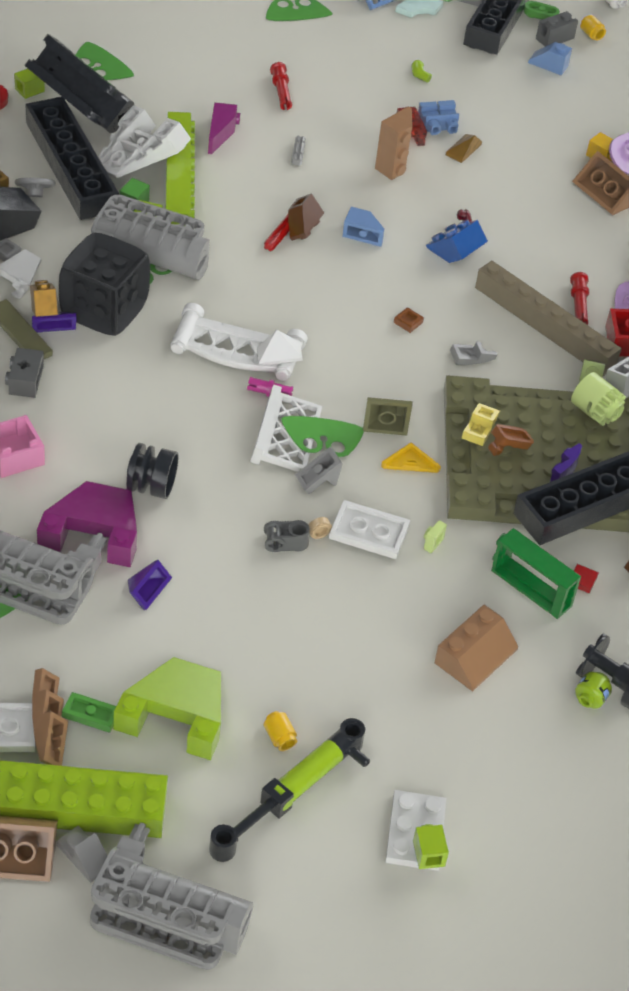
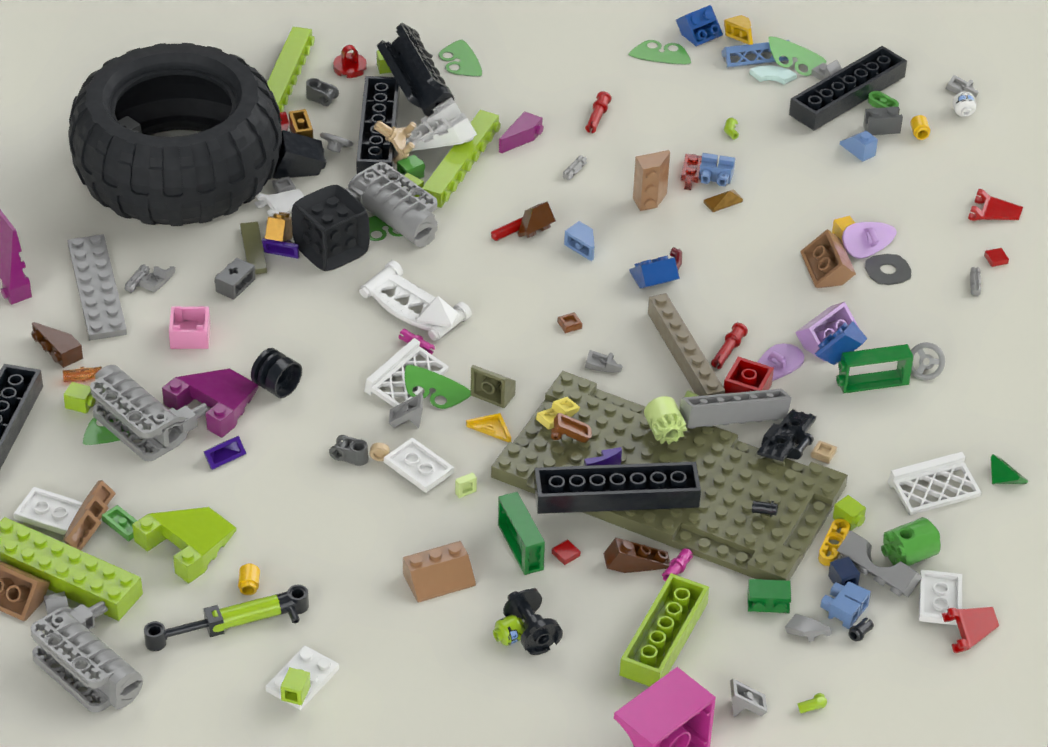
camera: 30 degrees right, 5 degrees down
(106, 160) = (397, 137): none -> tan axle

